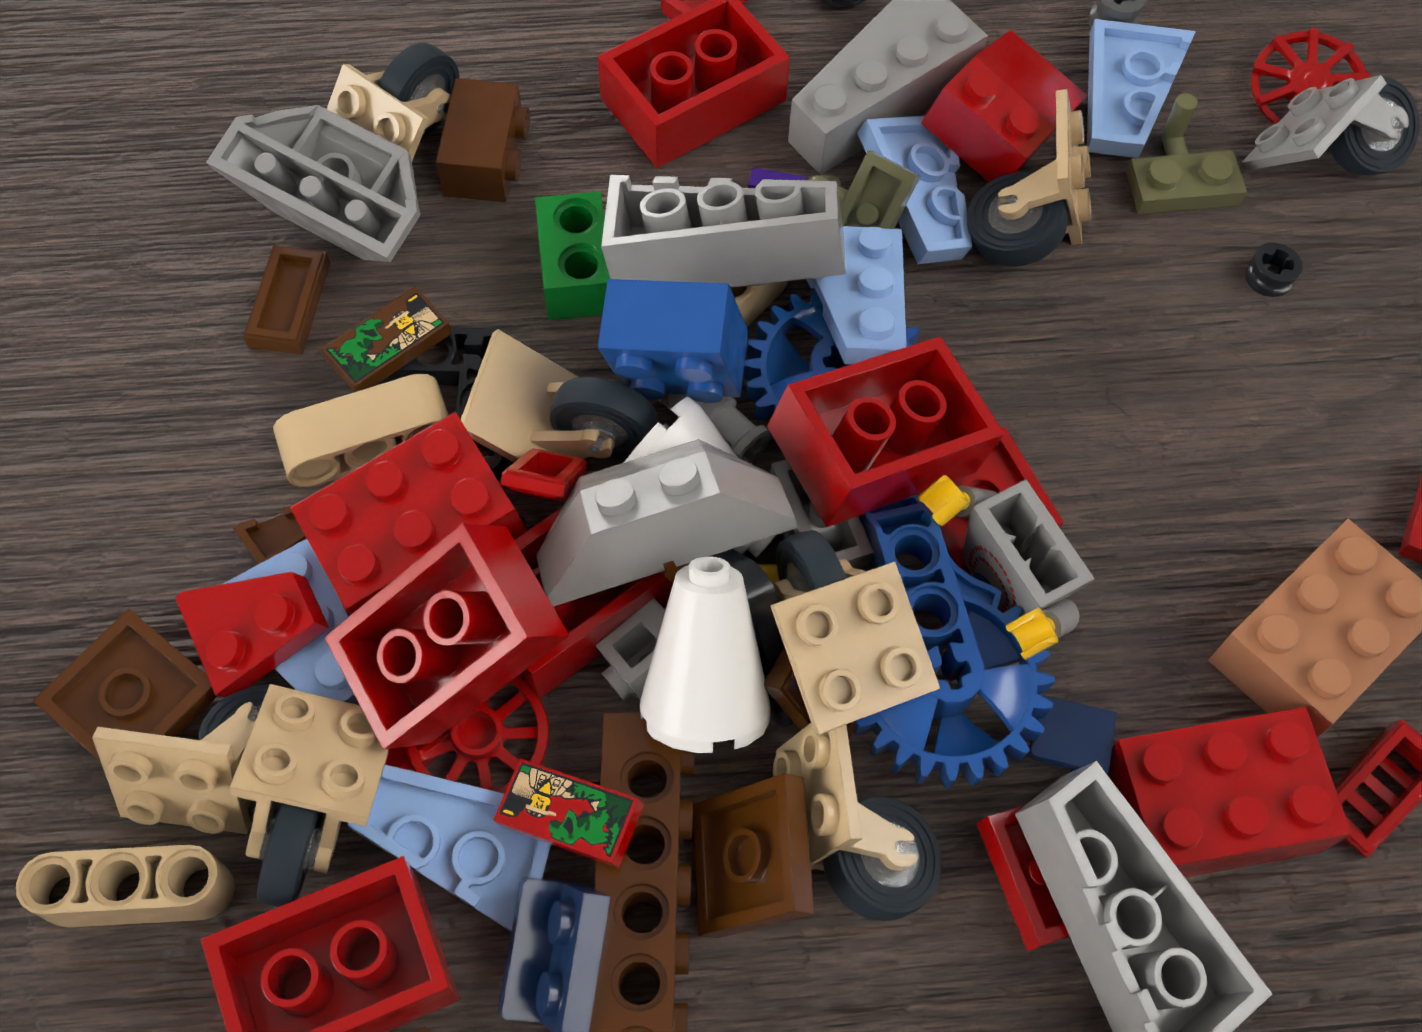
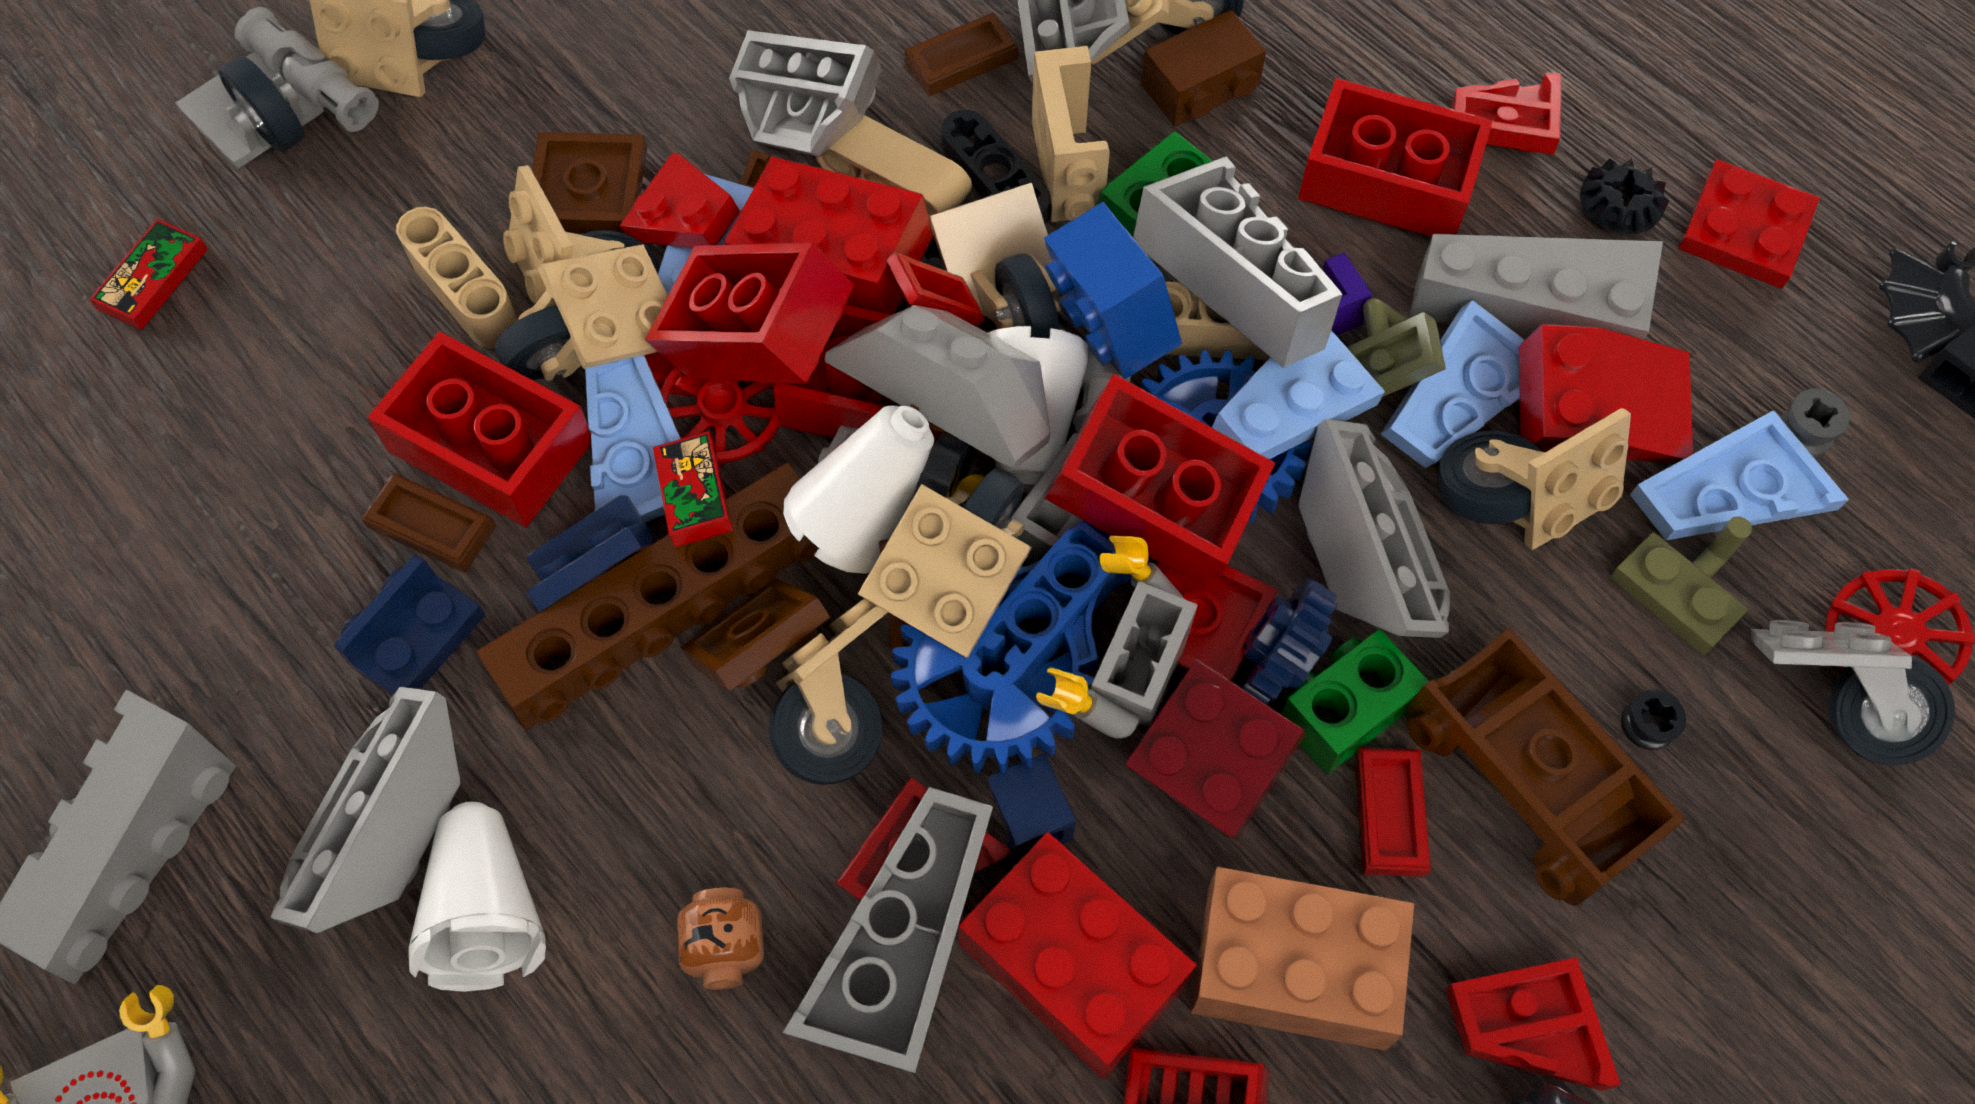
camera: 55 degrees right, 0 degrees up
(223, 441) = (803, 89): none -> light grey wedge
(386, 340) = (972, 129): tile -> none
(462, 281) = (1059, 109): none -> tan panel
(1014, 338) = (1371, 535): none -> light grey wedge
(1069, 448) = (1287, 641): none -> dark blue gear
(1139, 565) = (1216, 749): none -> dark red brick
(1146, 445) = (1361, 708): none -> green brick
(1233, 487) = (1392, 812): none -> red tile
(1274, 352) = (1548, 763): none -> reddish brown piece

